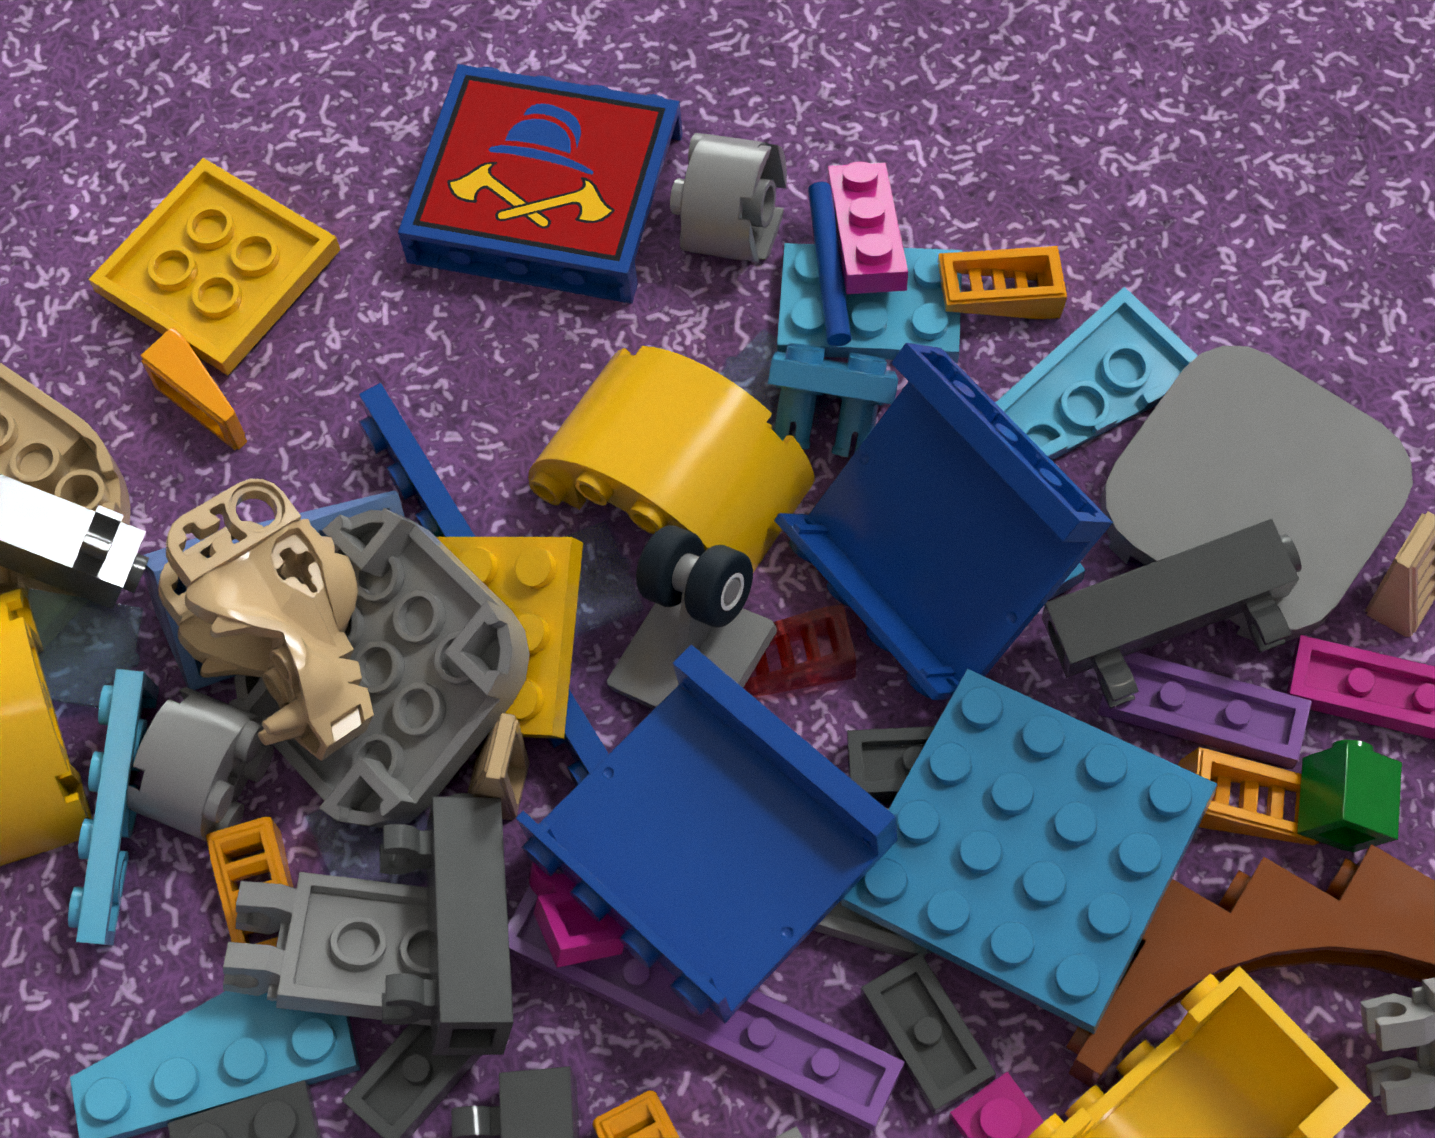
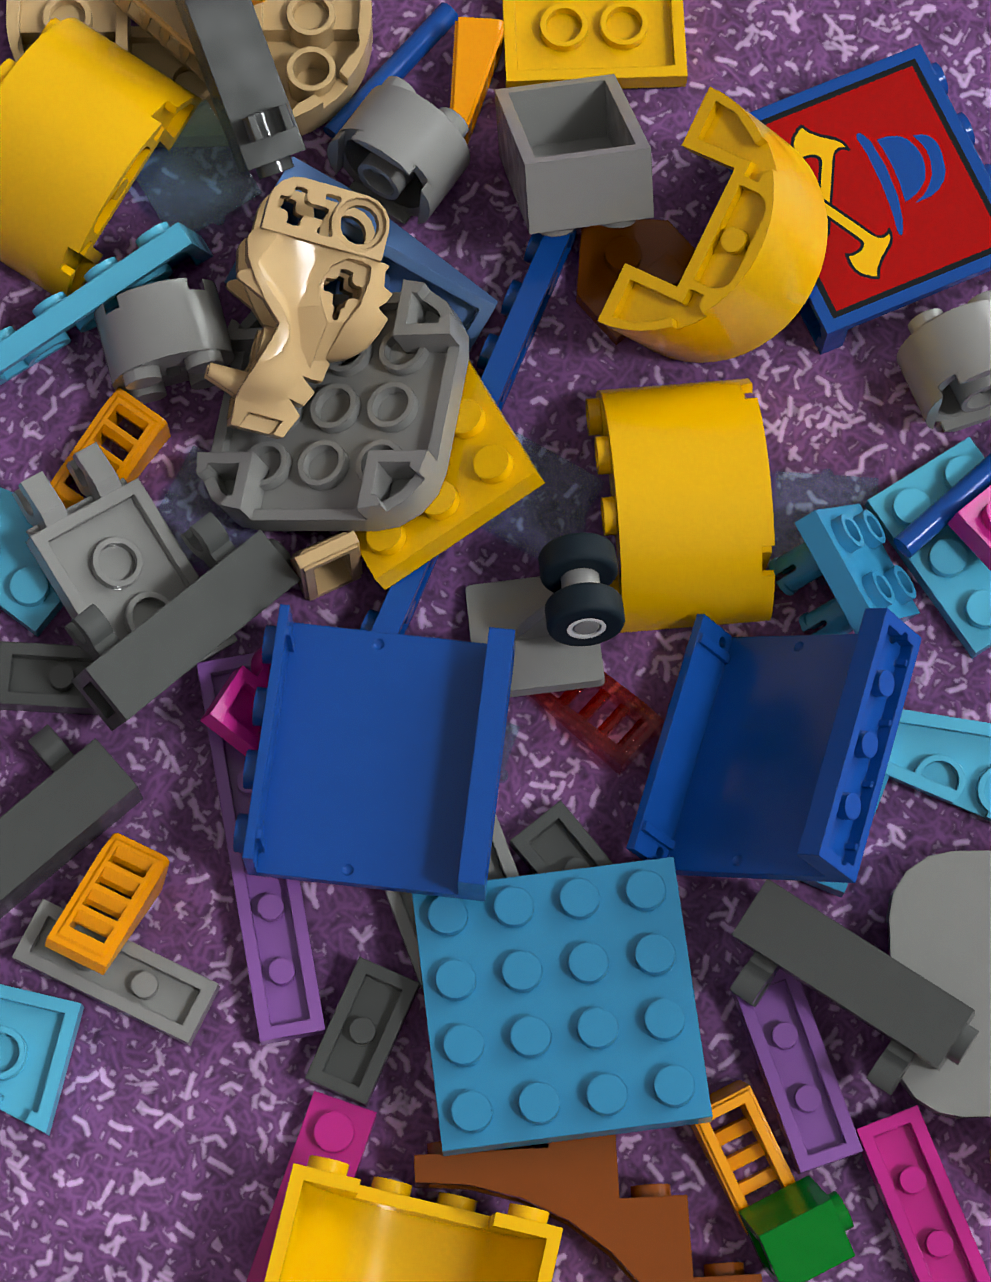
camera: 45 degrees right, 10 degrees up
(135, 447) = (401, 61): none -> blue bar
(202, 456) = (401, 150): none -> light grey brick
(332, 342) = (574, 155): none -> light grey piece
(451, 385) = (646, 245): none -> dark orange plate
(535, 267) = (752, 258): none -> yellow cylinder

